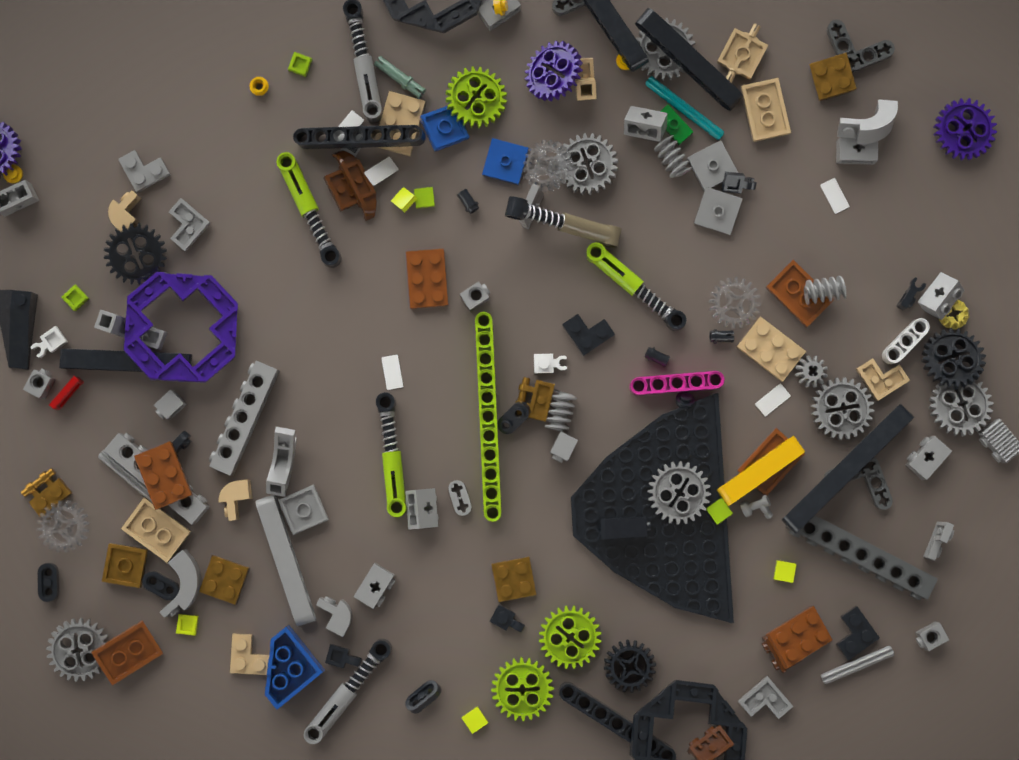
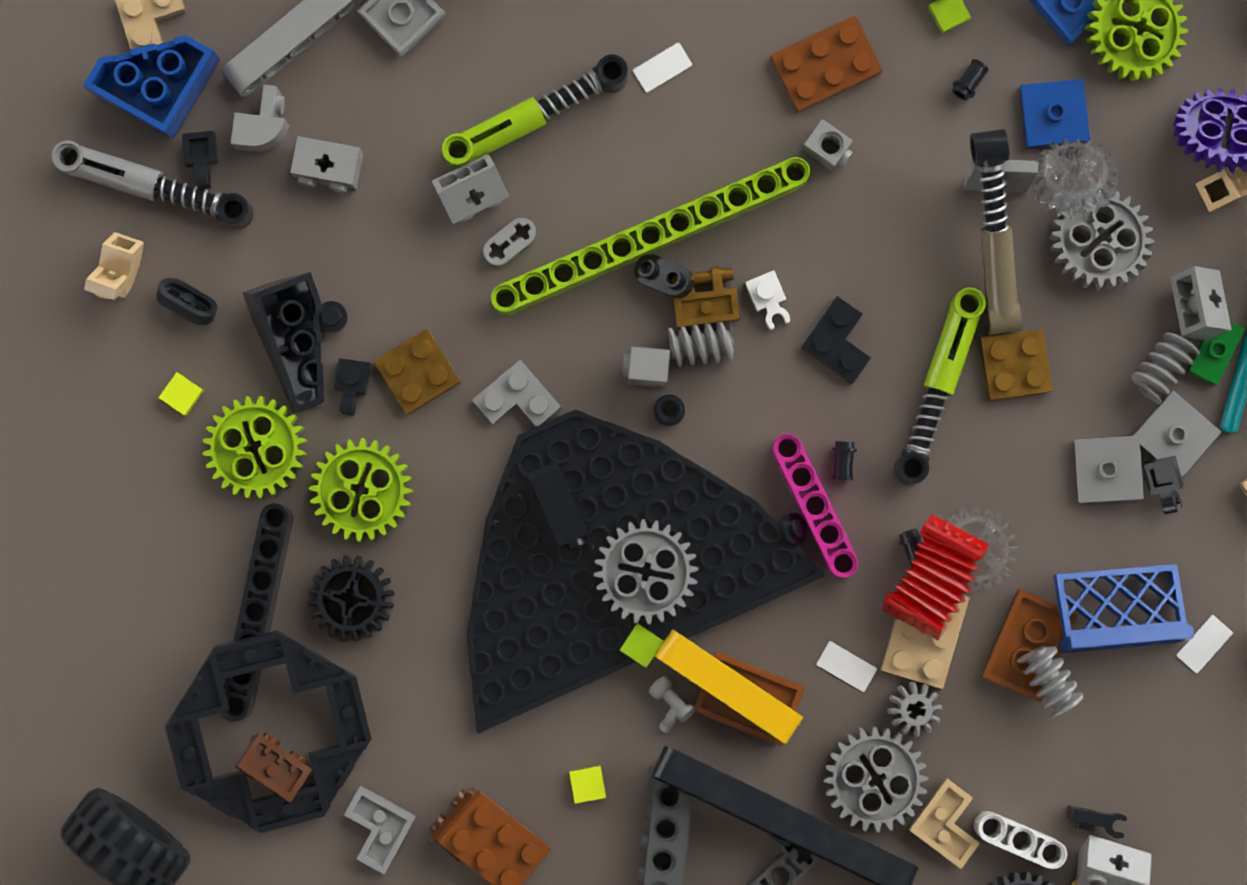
camera: 65 degrees right, 0 degrees up
(388, 730) = (116, 268): none -> tan brick
(463, 616) = (333, 317): none -> black plate
(463, 643) = (289, 328): none -> black wedge
(546, 523) = (519, 388): none -> light grey plate
(595, 439) = (669, 400): none -> black plate
(639, 239) = (1015, 365): none -> pearl gold plate
(744, 330) = (937, 577): none -> red piece
(814, 240) = (1121, 636): none -> fence

